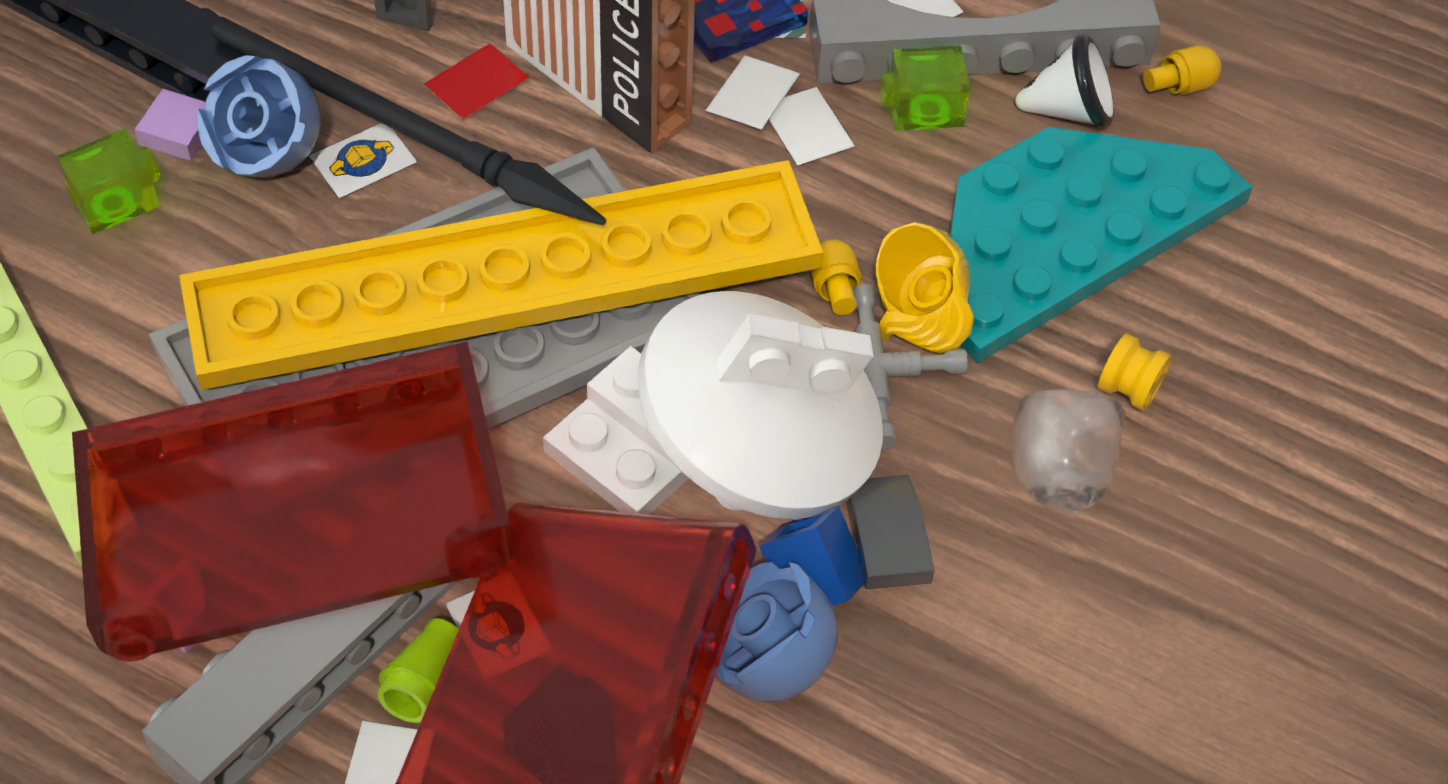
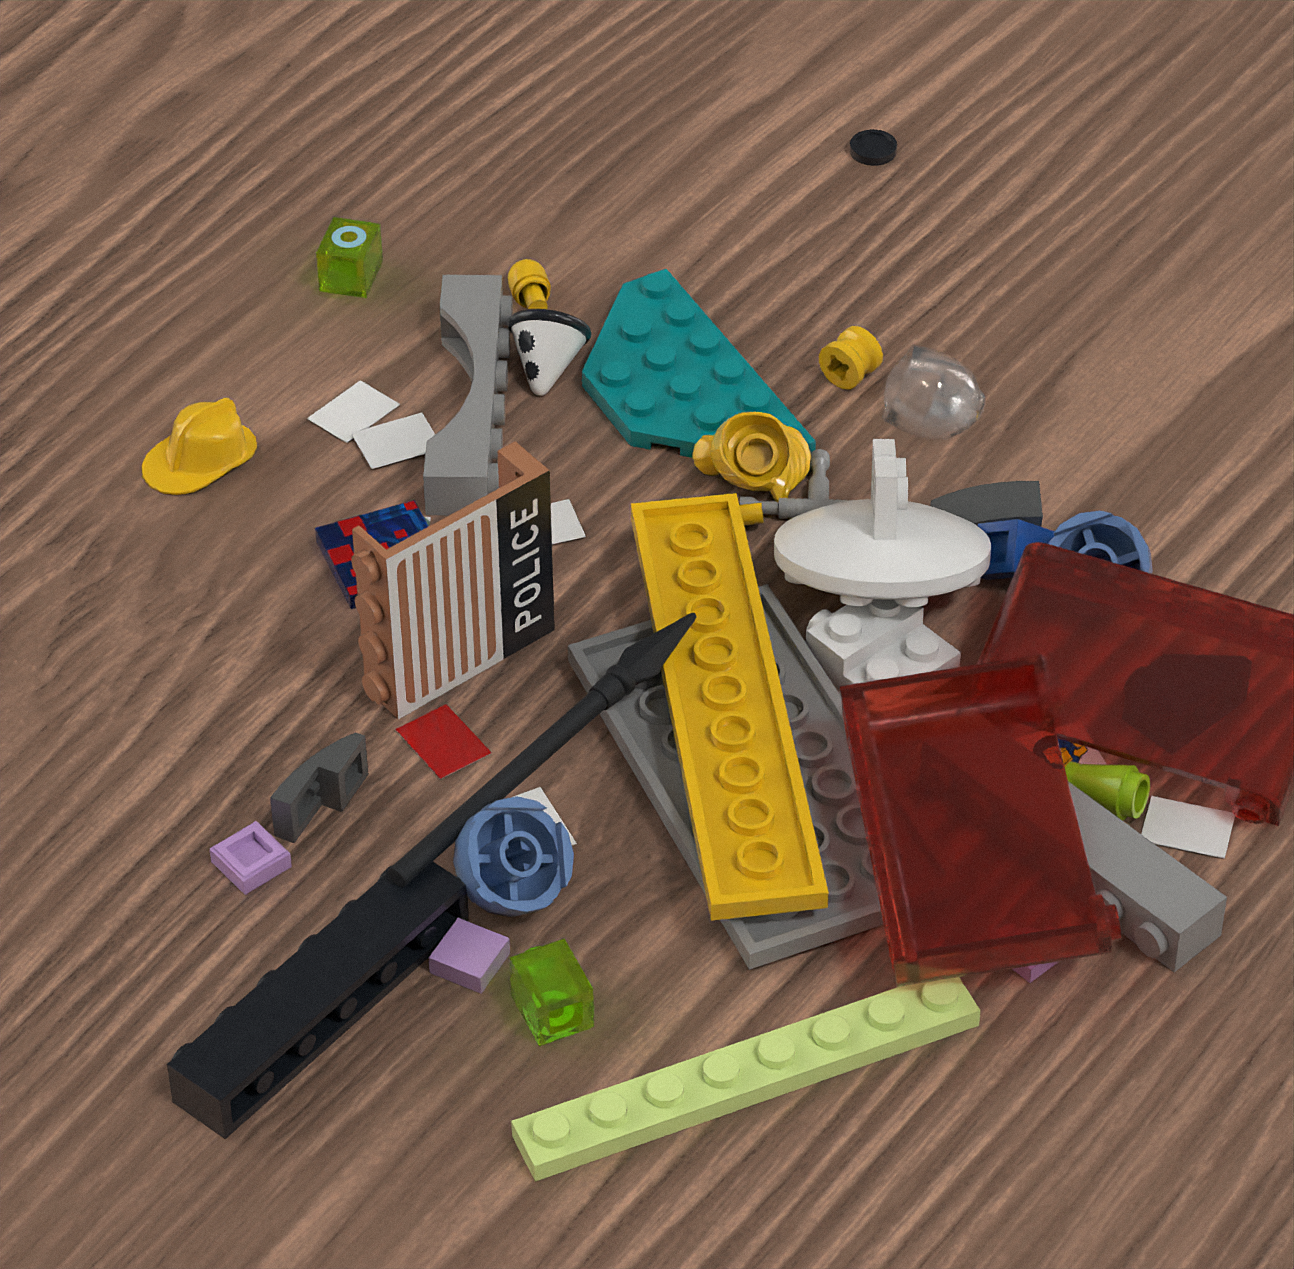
camera: 80 degrees left, 10 degrees down
(926, 88) = (532, 424): clear neon green brick -> none

